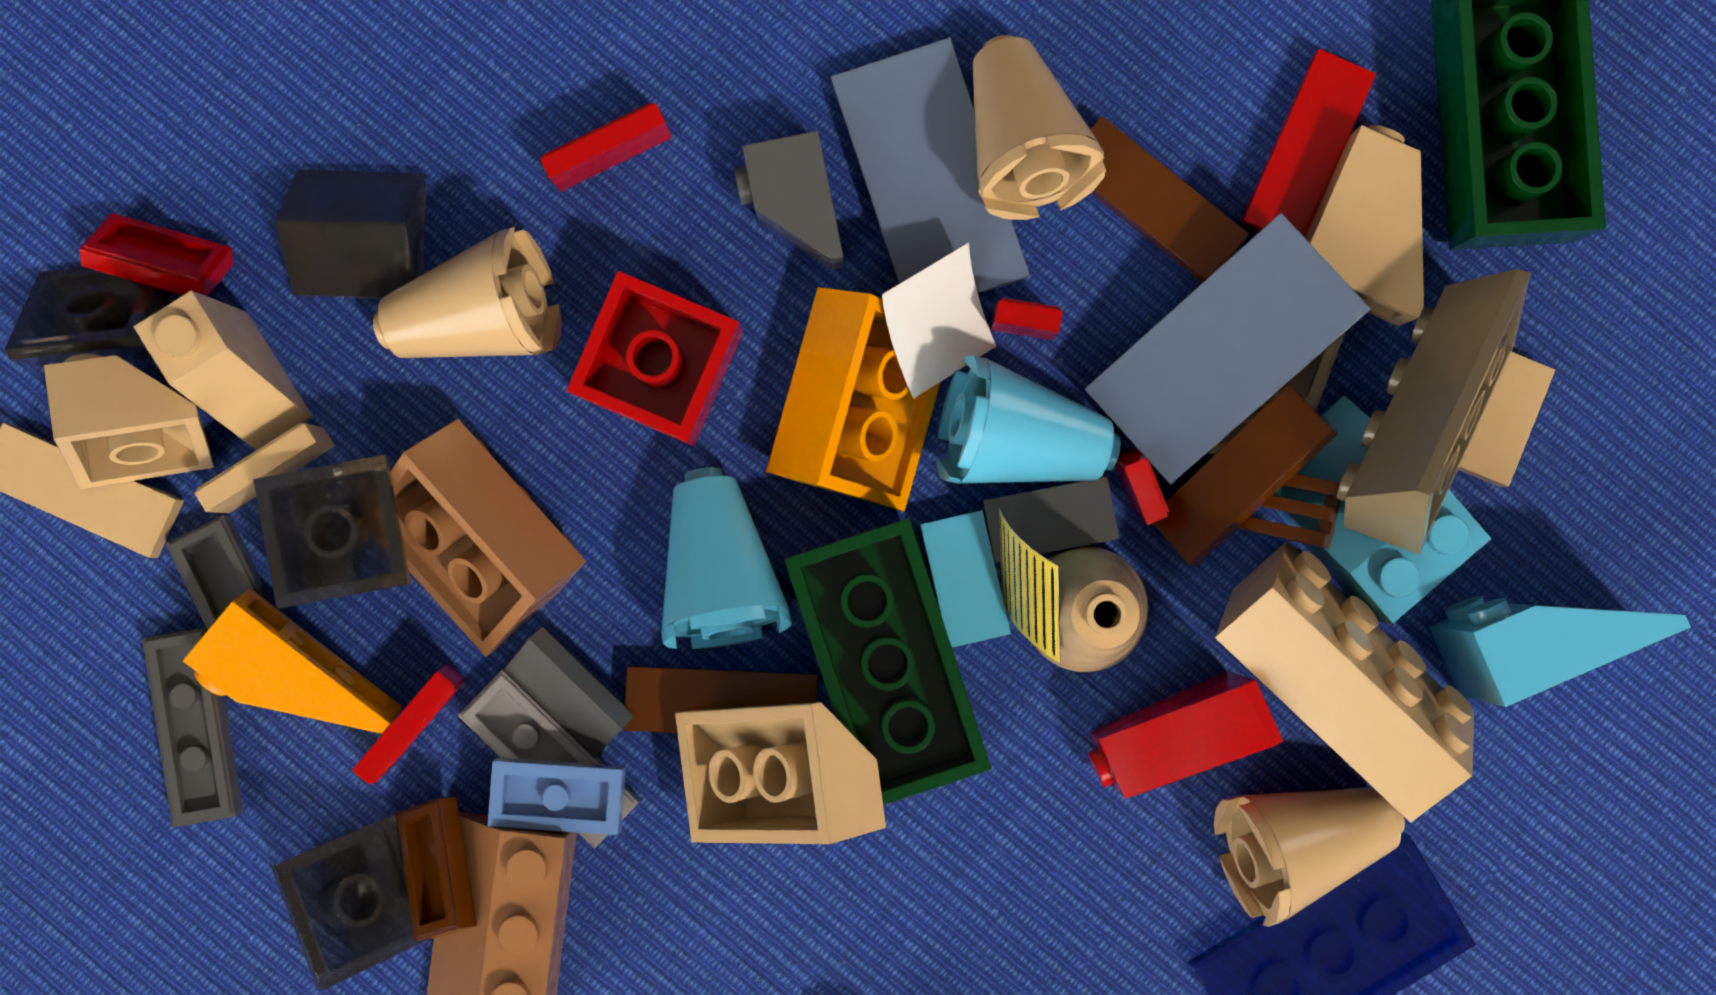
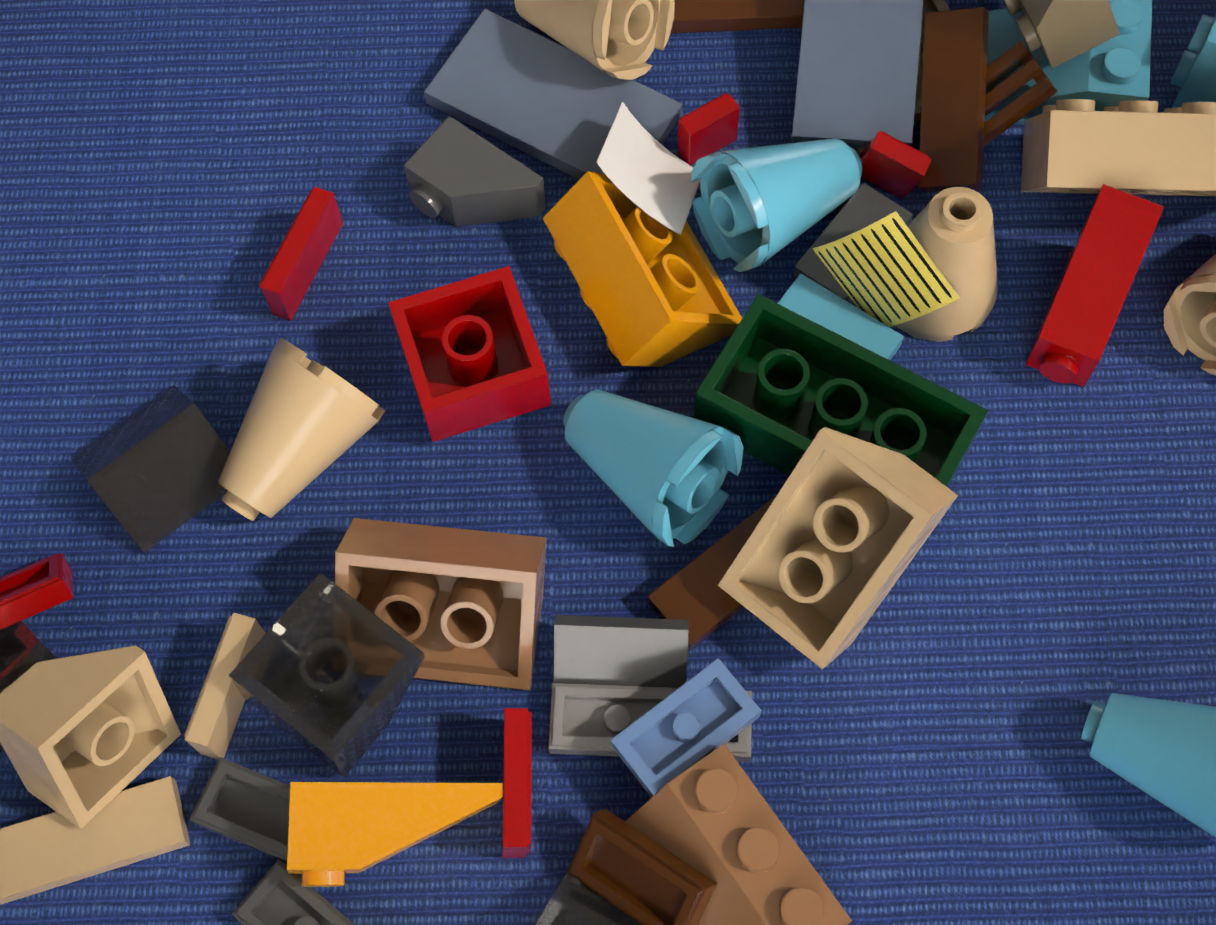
camera: 35 degrees left, 20 degrees down
(223, 367) = (117, 606): tan slope -> none

